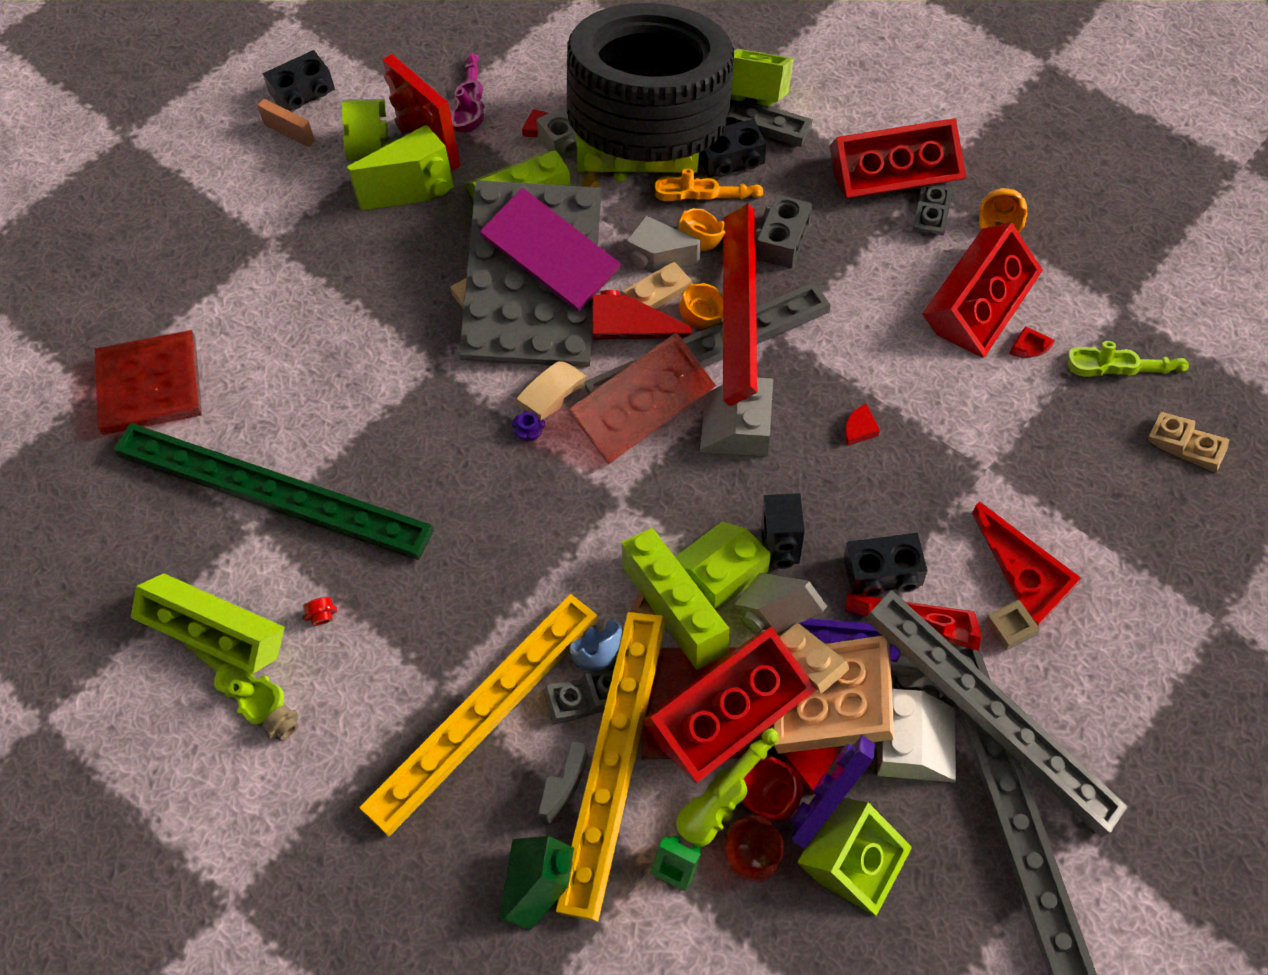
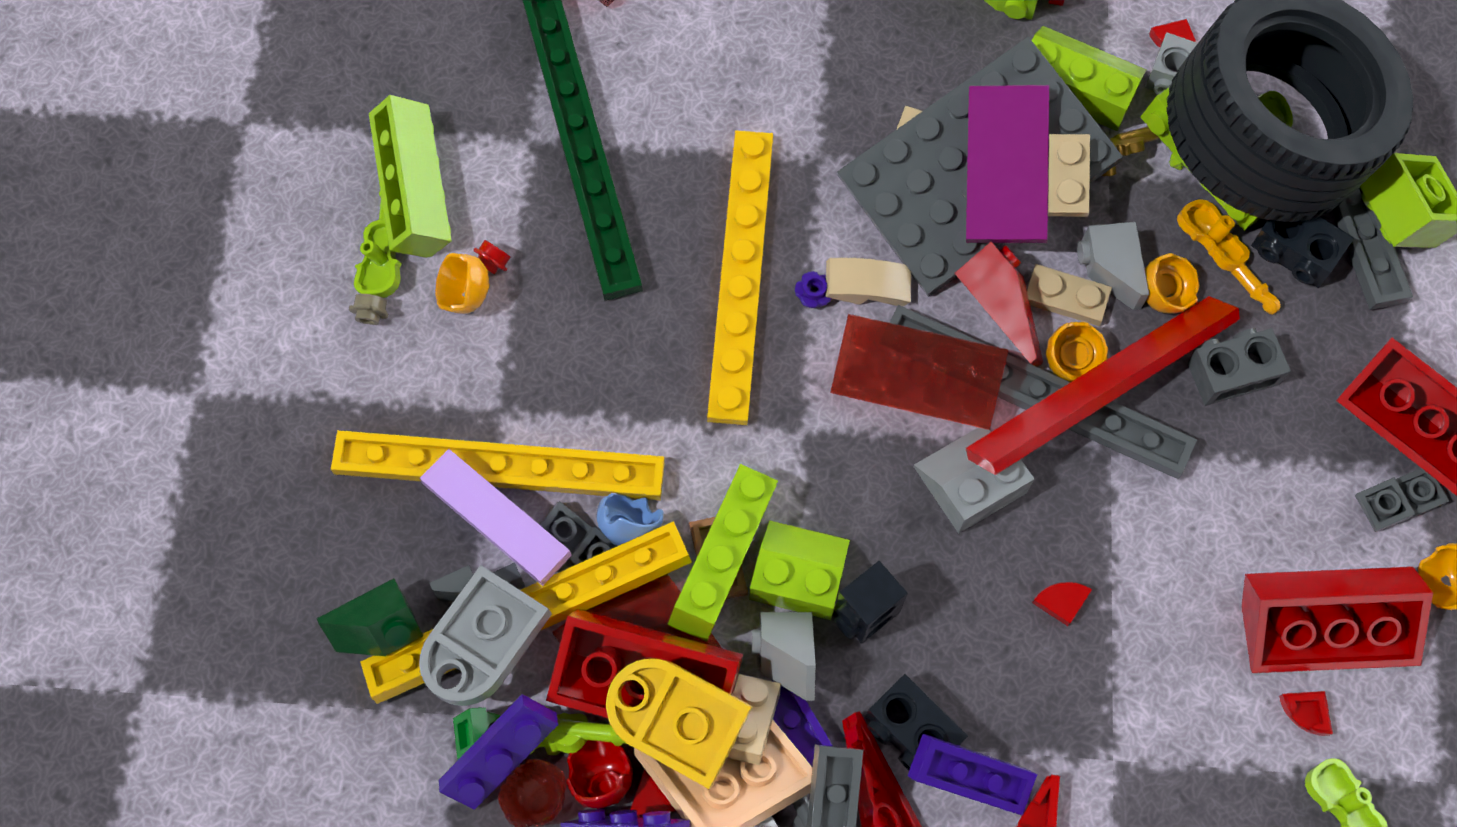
camera: 50 degrees right, 10 degrees up
(317, 636) = (458, 275): none -> light orange hair
(480, 465) = (740, 279): none -> yellow plate
(524, 732) = (495, 517): none -> lavender tile
(590, 220) = (1068, 175): none -> tan plate
(613, 797) = (482, 637): none -> light grey plate
(708, 846) = (498, 752): none -> dark purple plate
(784, 692) = (679, 719): none -> yellow plate
(945, 547) = (972, 775): none -> dark purple plate

